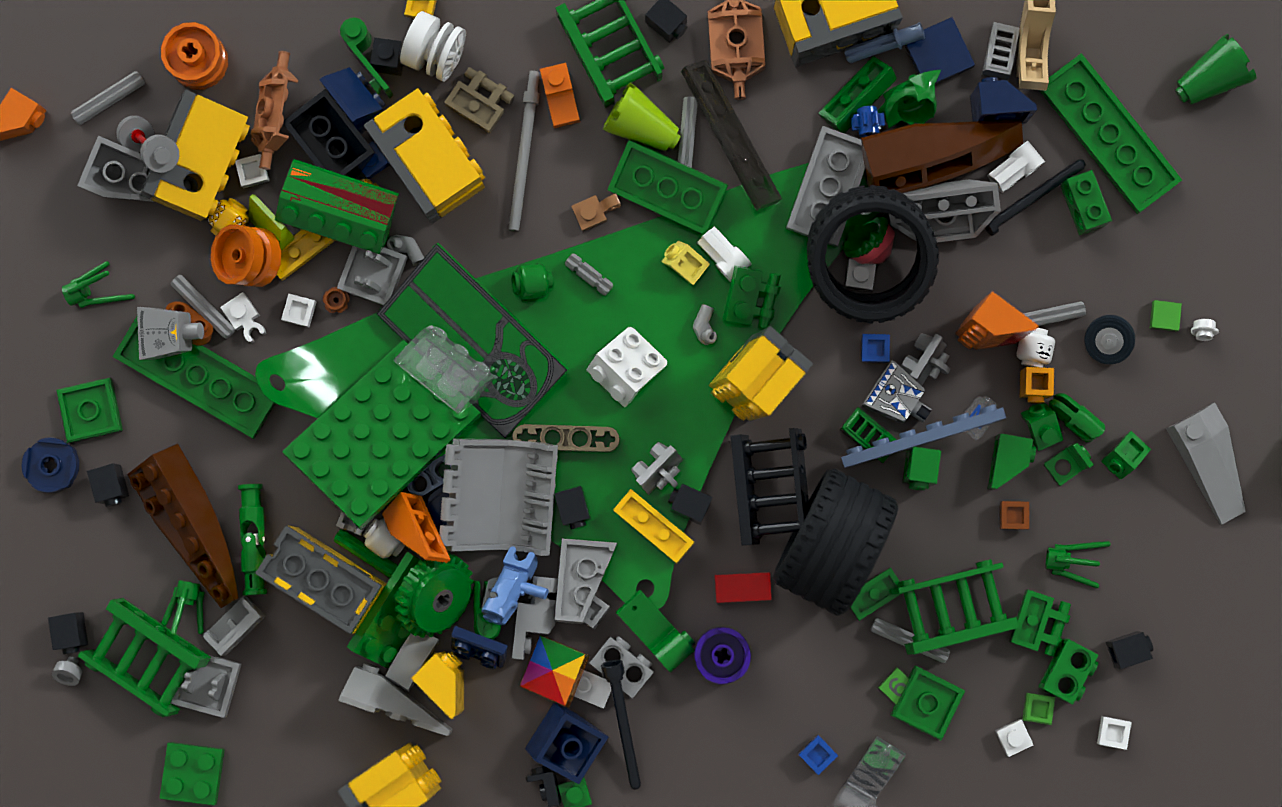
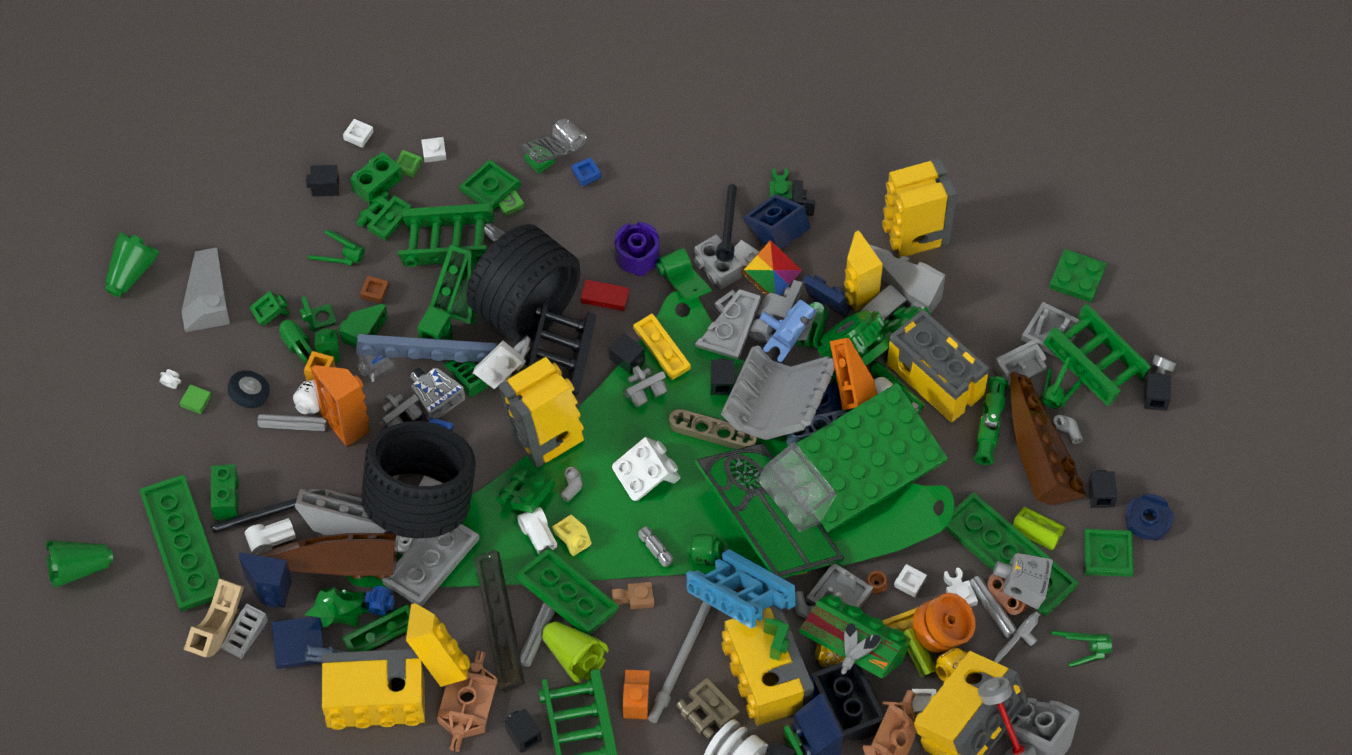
camera: 170 degrees left, 25 degrees down
(161, 281) = (1024, 632): none -> light grey piece
(163, 560) = (1068, 426): none -> light grey arm
(172, 420) = (1038, 528): none -> lime slope
(328, 178) = (854, 650): none -> light grey piece
(410, 159) = (780, 632): none -> green bracket
(463, 241) = (760, 588): none -> dark azure fence
(785, 65) = (436, 647): none -> yellow slope
(821, 446) = (502, 362): none -> white bracket
(917, 534) = (453, 282): none -> green wedge

